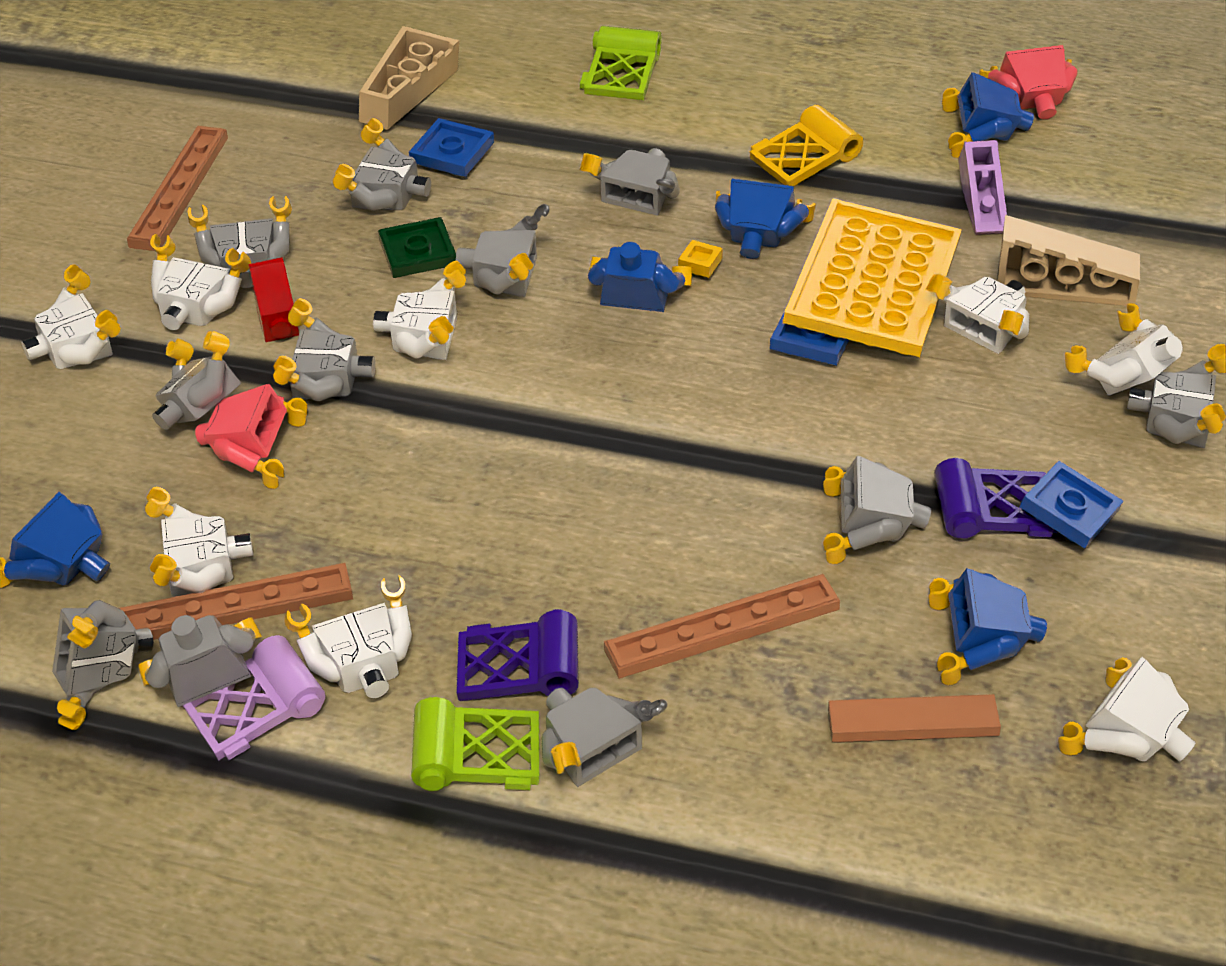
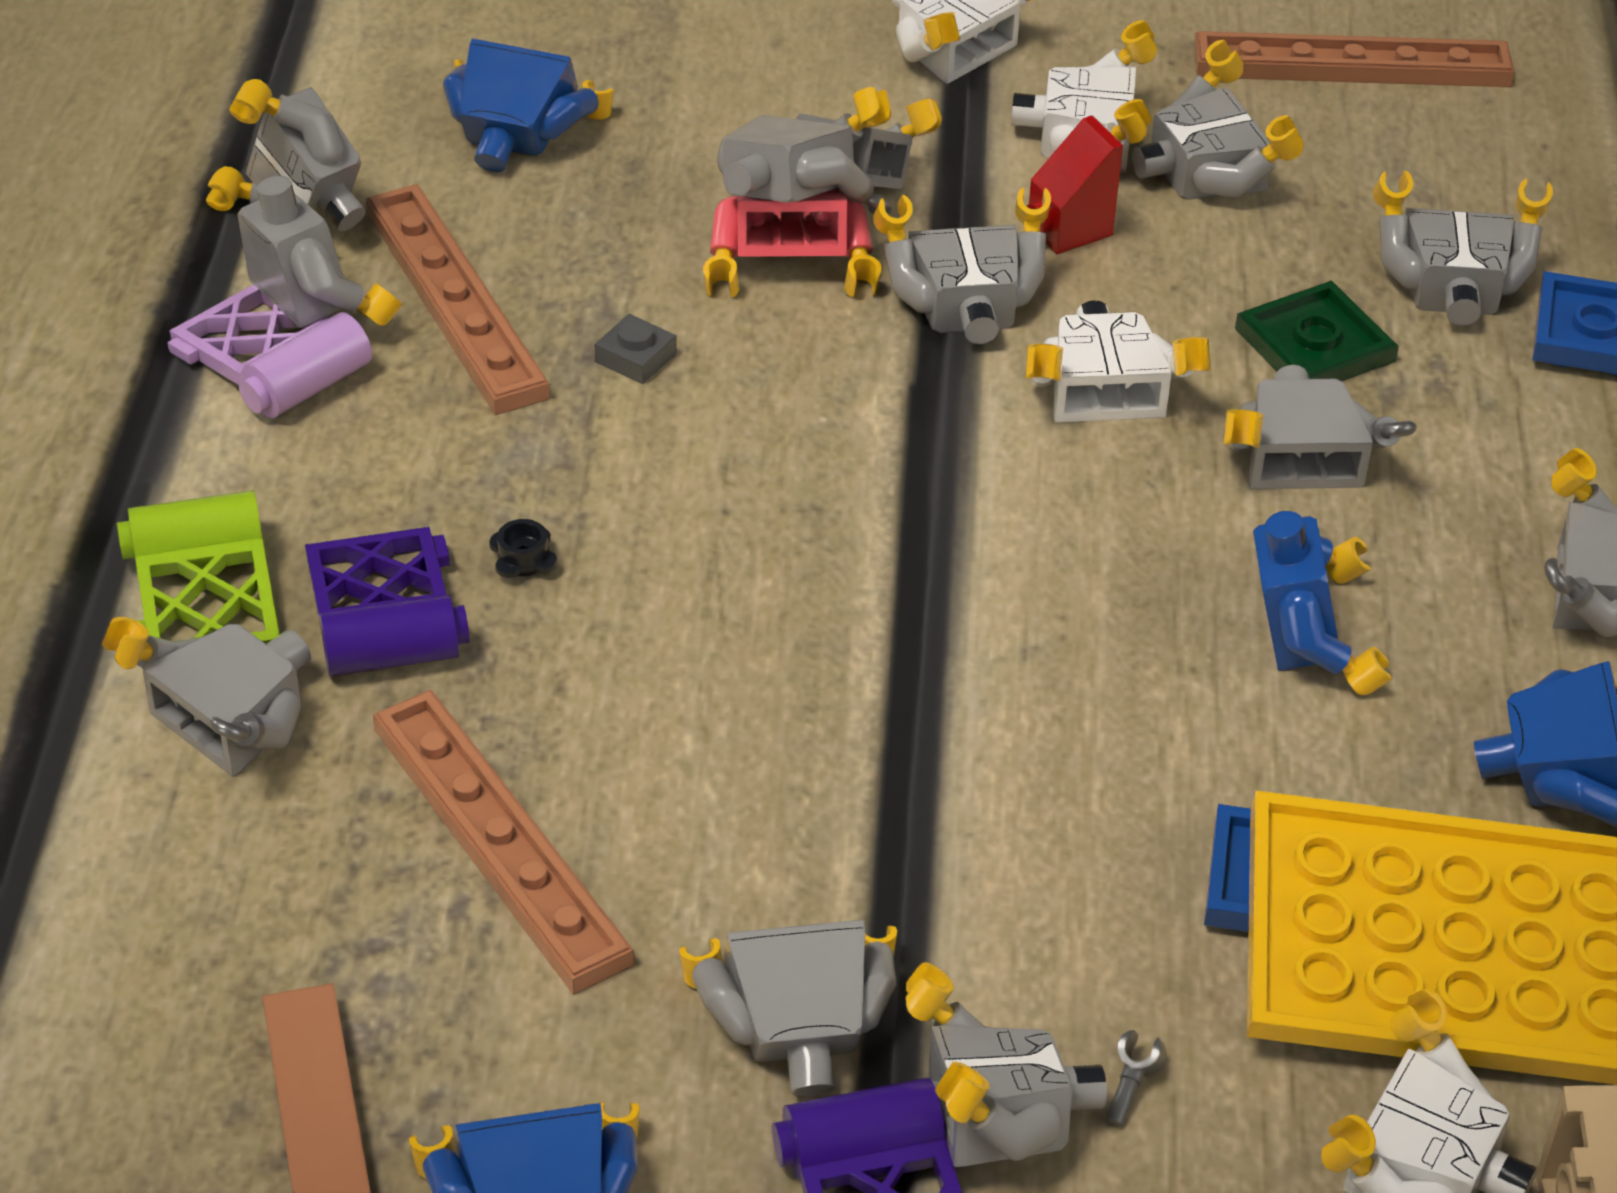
camera: 75 degrees right, 0 degrees up
(194, 546) = (528, 229): white torso -> none
(222, 404) = (793, 161): none -> light grey torso
(321, 522) = (635, 348): none -> dark grey plate
(357, 647) = (368, 417): white torso -> none
(492, 590) = (522, 549): none -> black plate
(701, 257) = (1424, 688): yellow plate -> none
(923, 396) = (1132, 1075): none -> dark grey hand
(946, 434) = (997, 1086): none -> light grey torso

